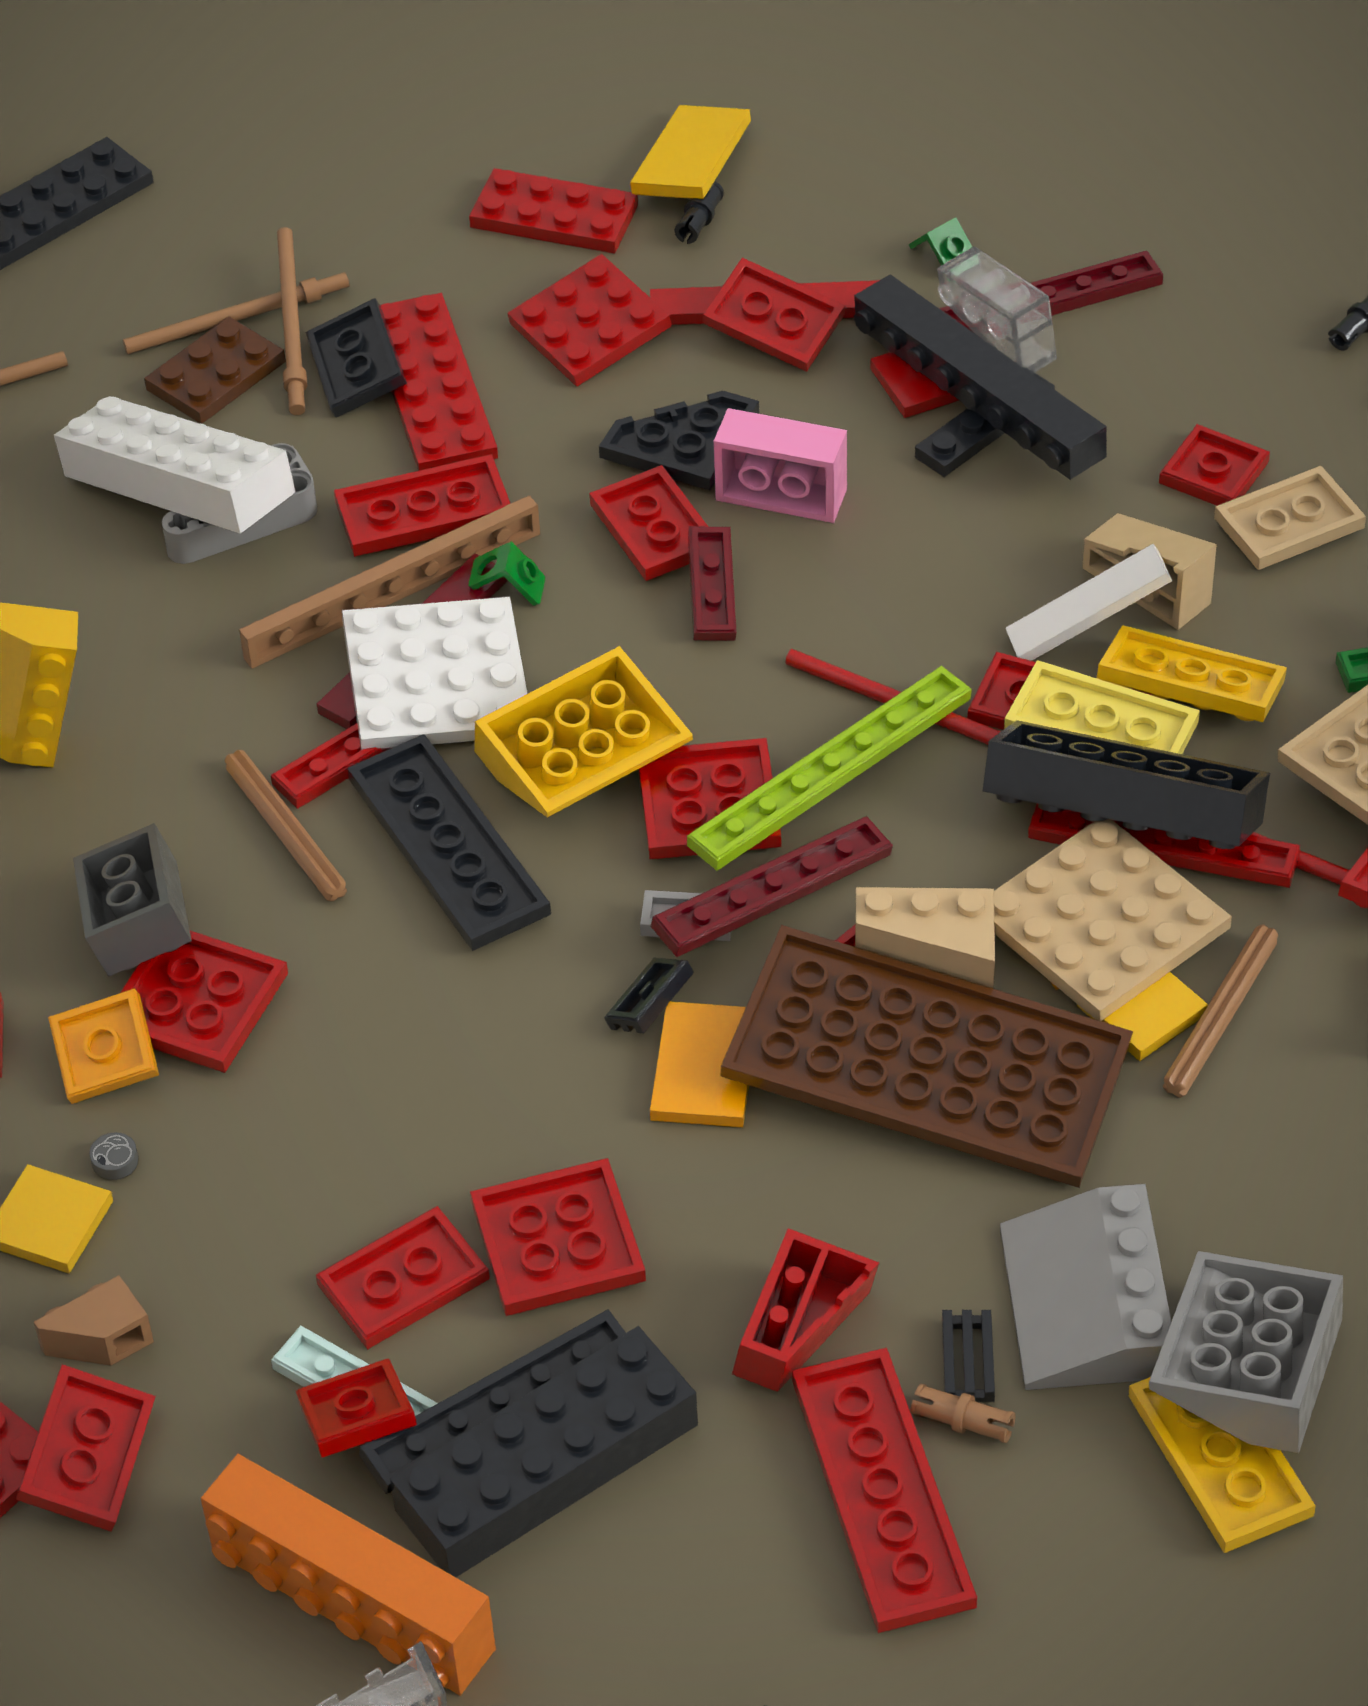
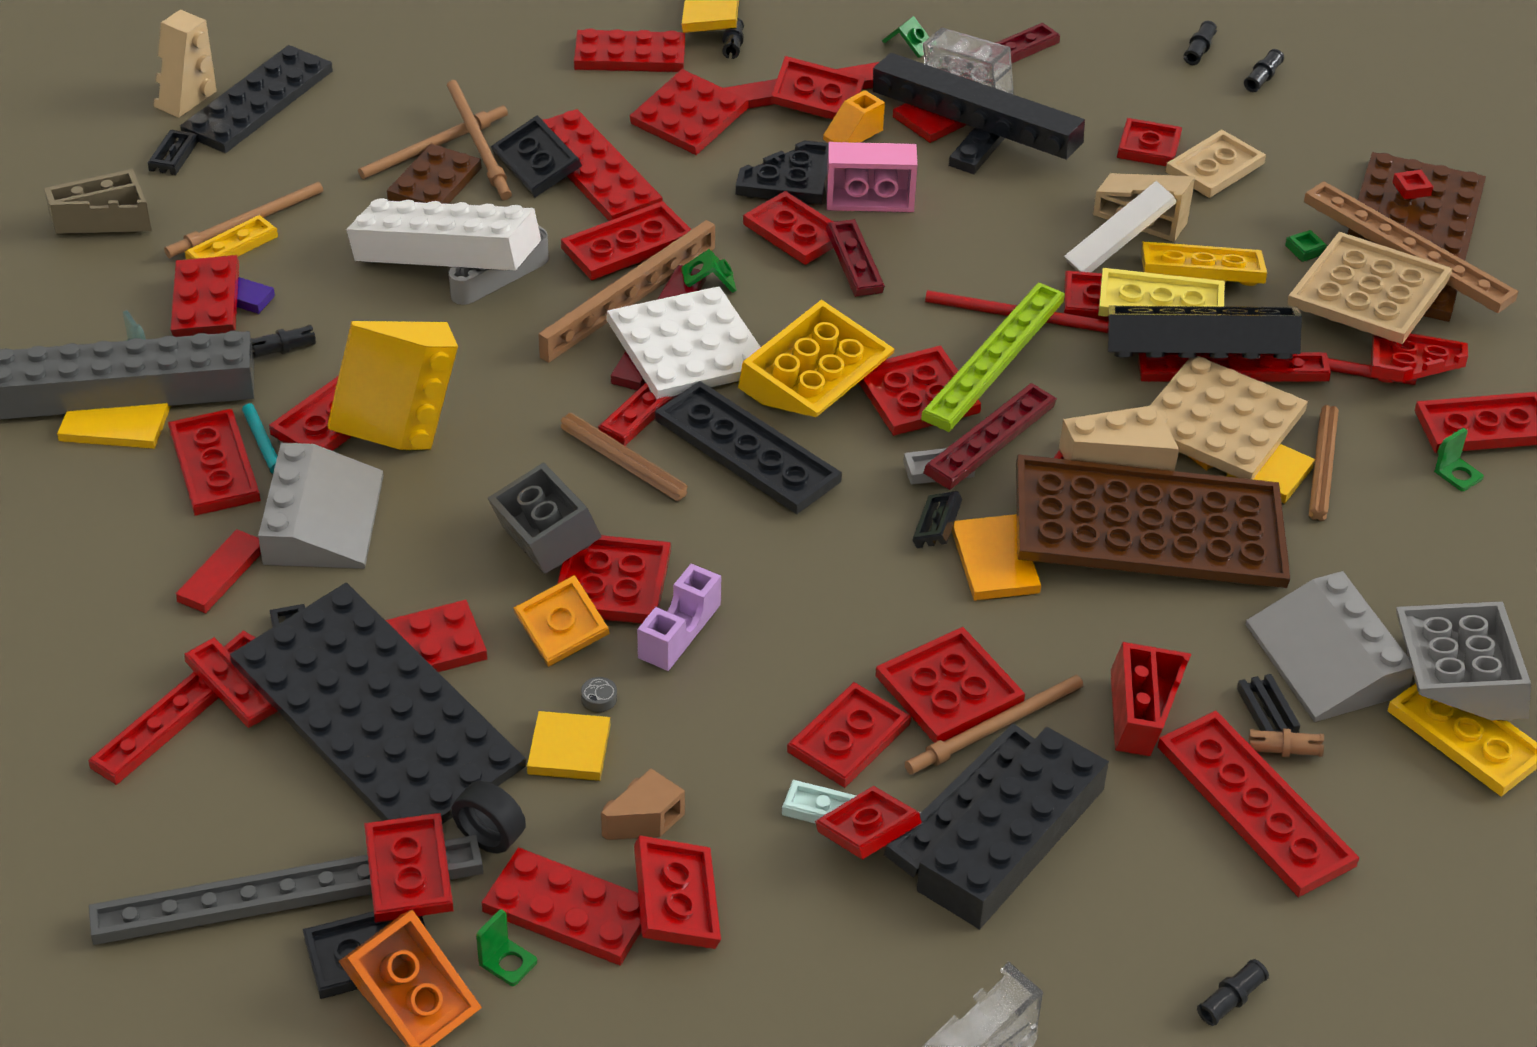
camera: 20 degrees left, 5 degrees down
(277, 1053) = (668, 633): none -> lavender arch
(347, 1572) = (912, 931): orange brick -> none
(503, 1327) = (941, 751): none -> medium nougat bar
(803, 373) = (857, 119): none -> light orange slope

